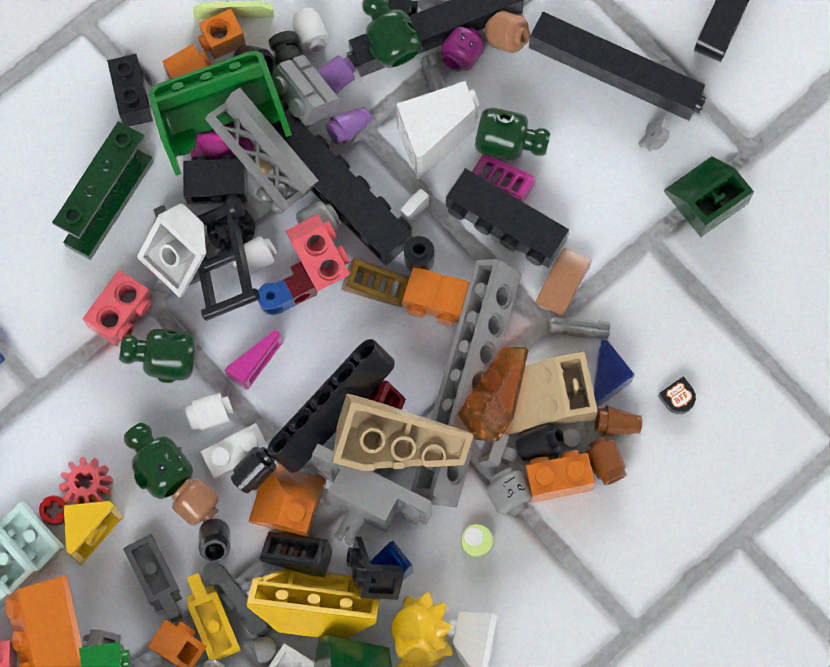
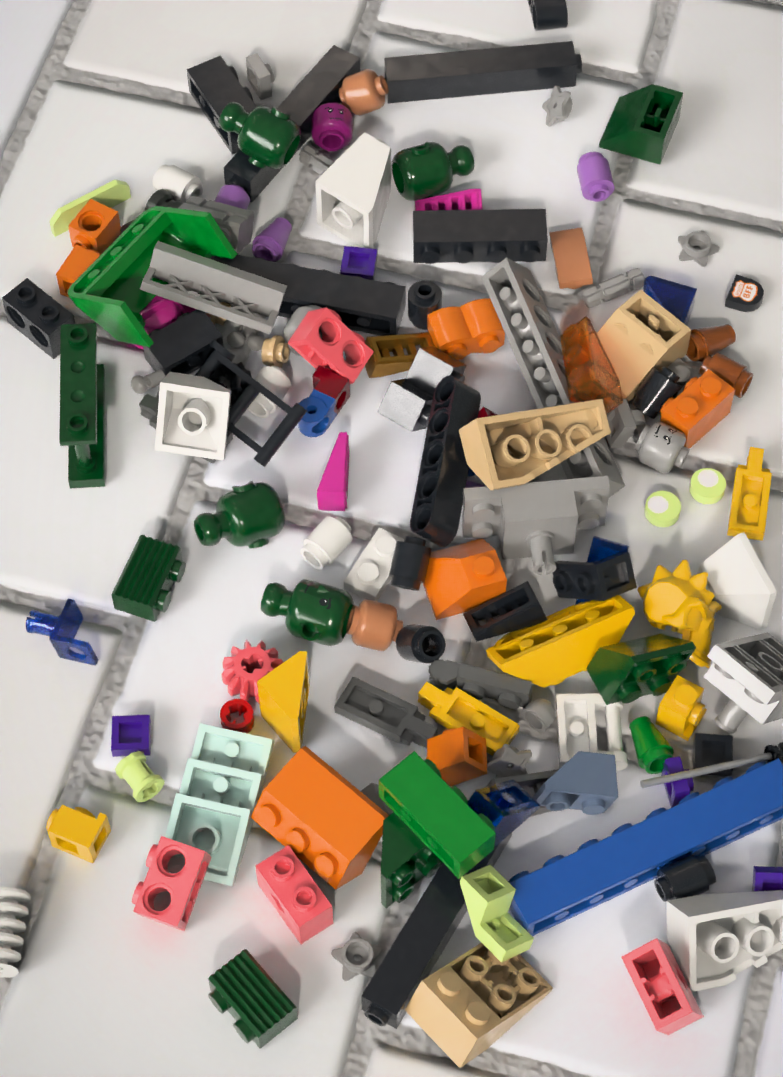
camera: 35 degrees left, 15 degrees down
(64, 361) = (148, 578): none -> dark green brick
(110, 305) = (165, 504): coral brick -> none
(172, 195) = (140, 383): none -> light grey piece
(280, 223) = (275, 351): none -> tan plate
(381, 320) = (410, 399): none -> brick
(398, 186) = (359, 262): none -> dark purple plate
(415, 206) = (388, 265): white tile -> none
(524, 543) = (707, 486): none -> yellowish green tile
(547, 575) = (750, 497): none -> yellow hinge
(636, 219) = (595, 177): none -> medium lavender brick
(673, 322) = (700, 240): none -> light grey plate

